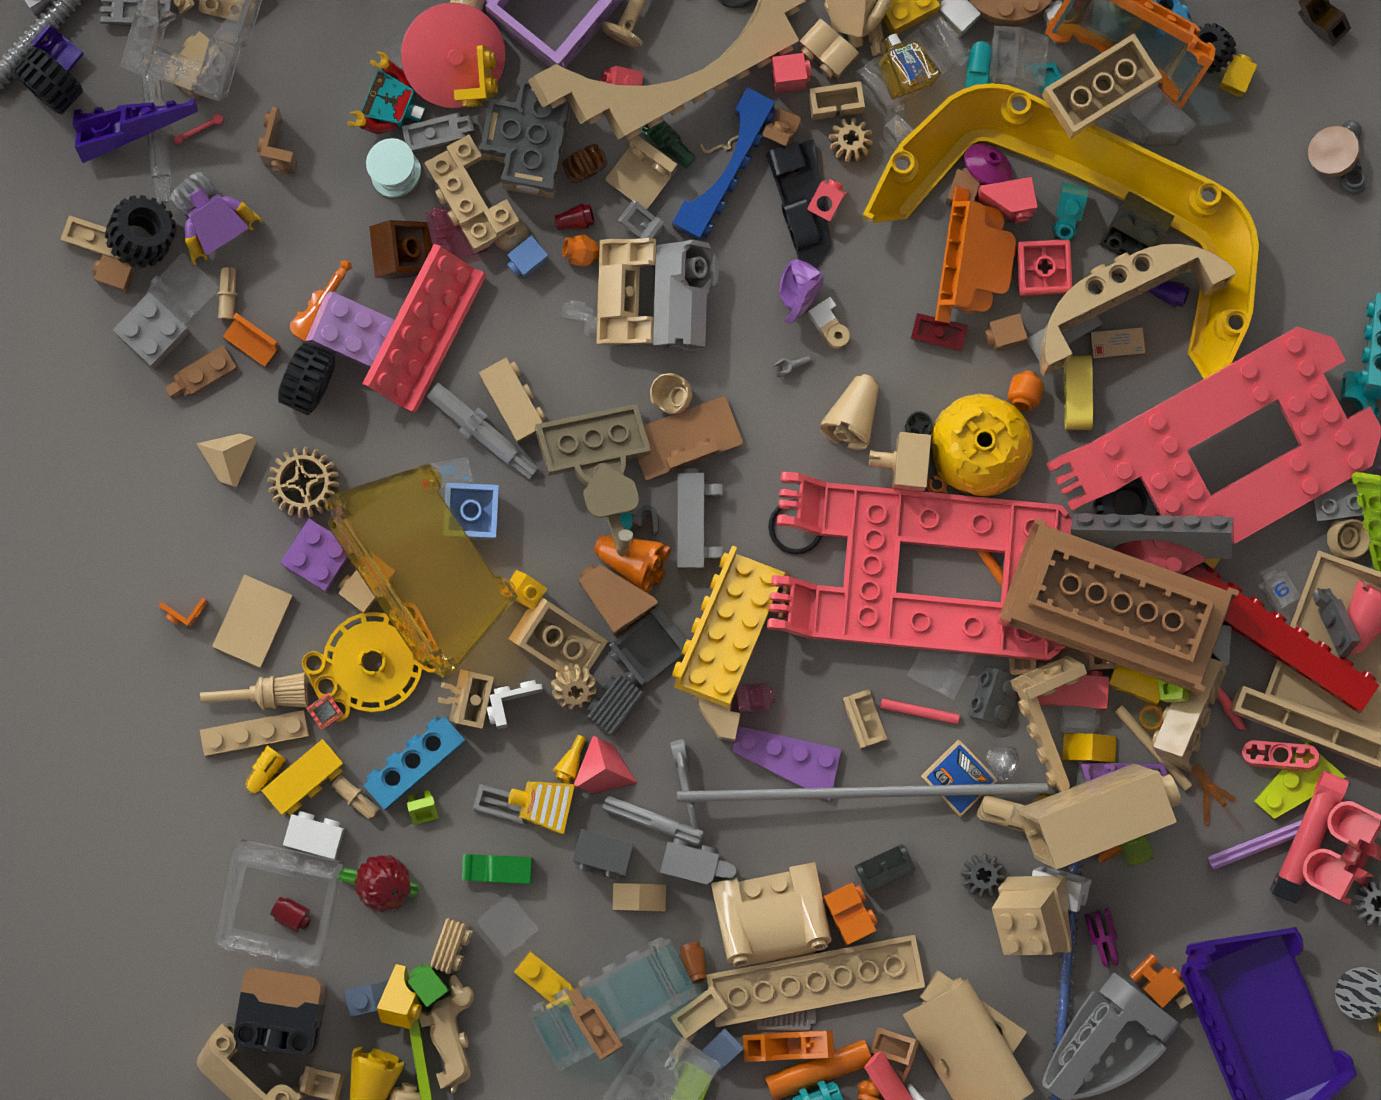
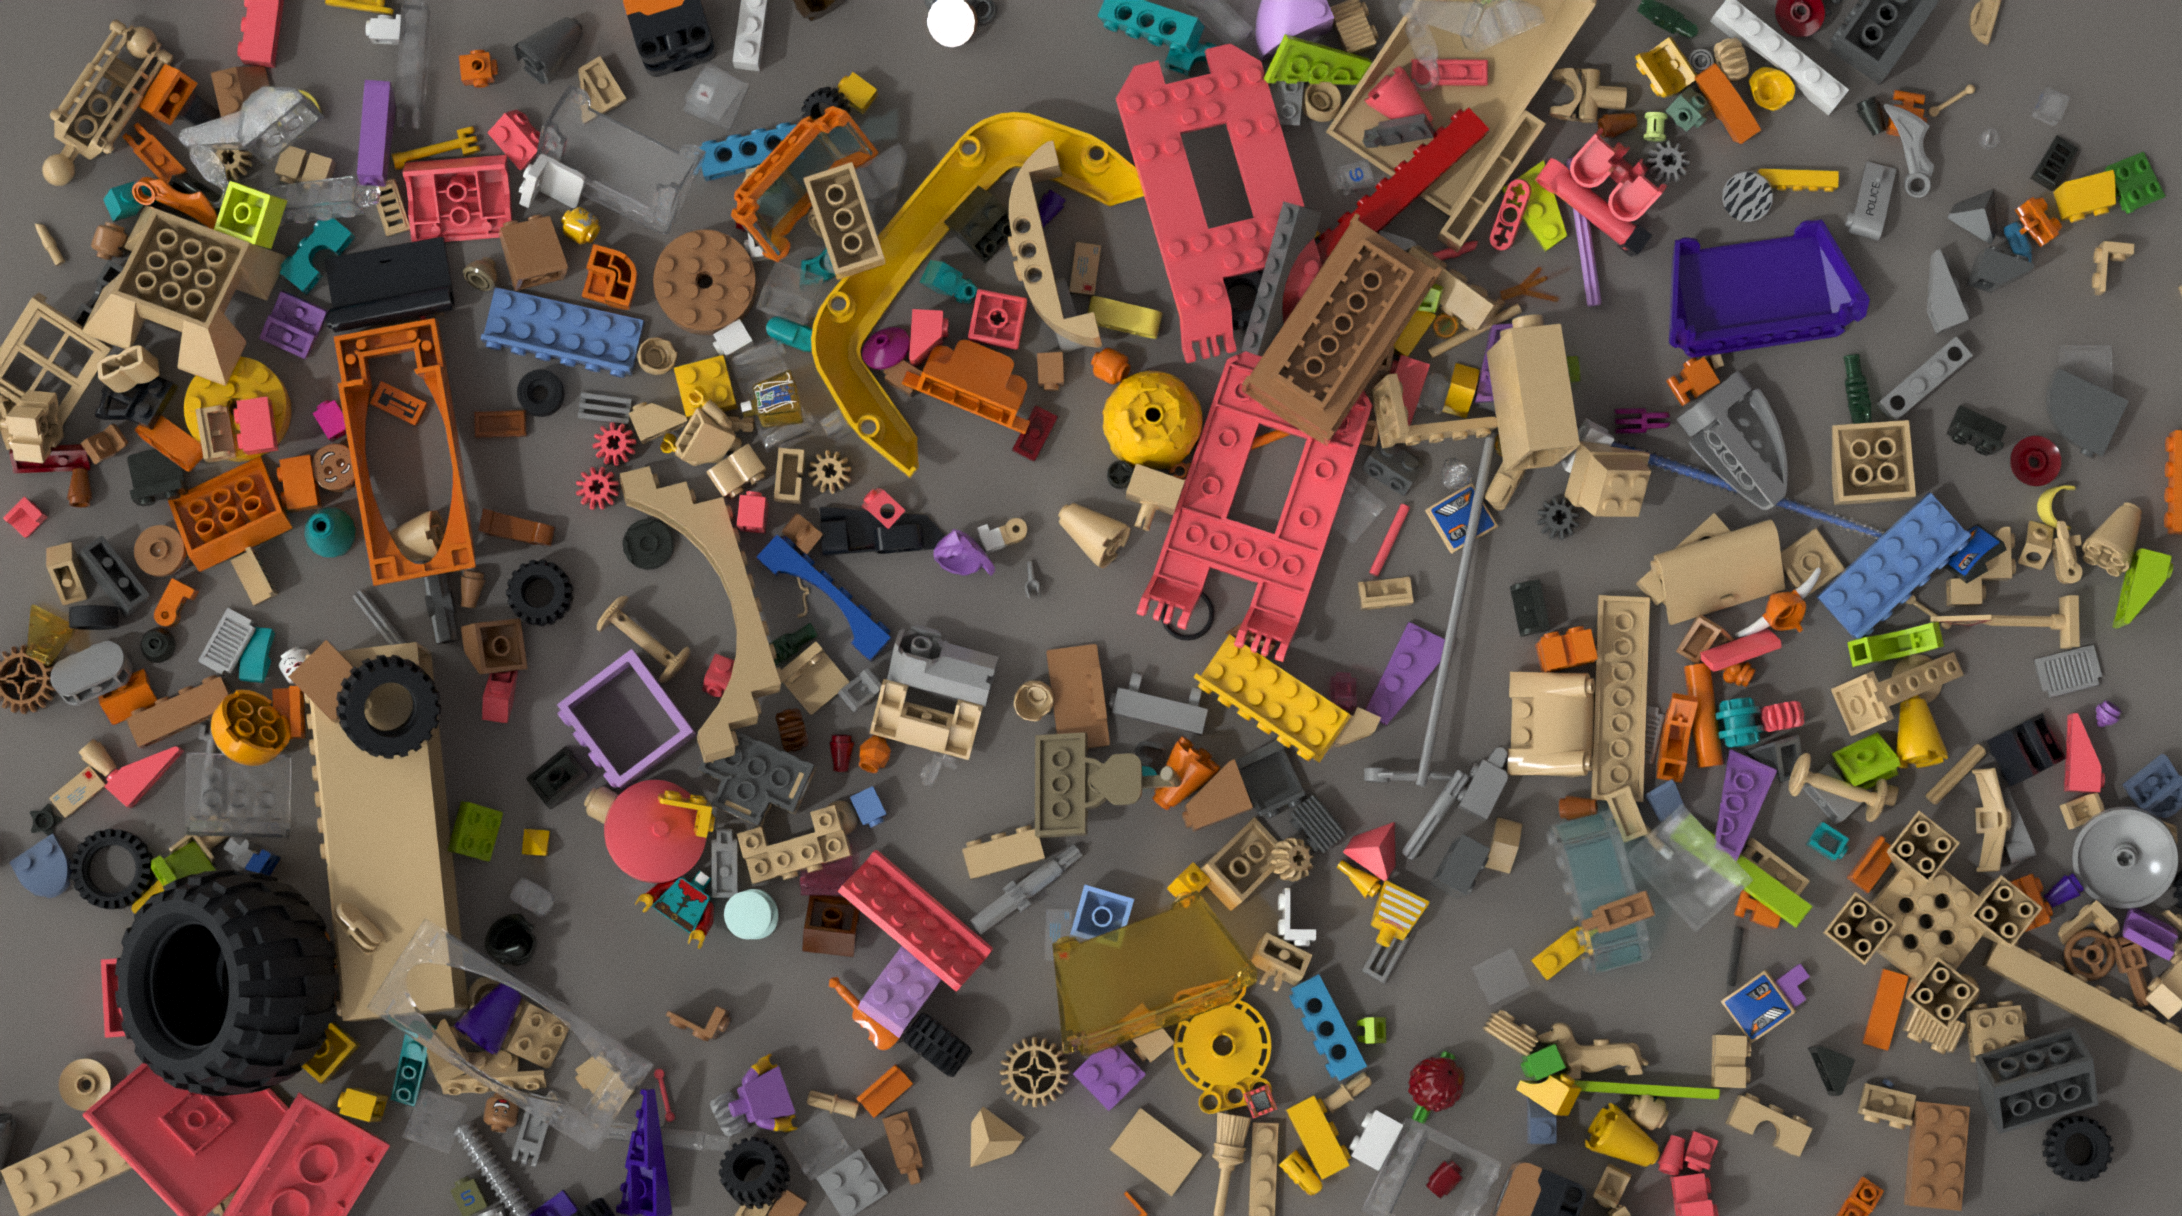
camera: 75 degrees left, 0 degrees up
(496, 868) = (1446, 973): green piece -> none

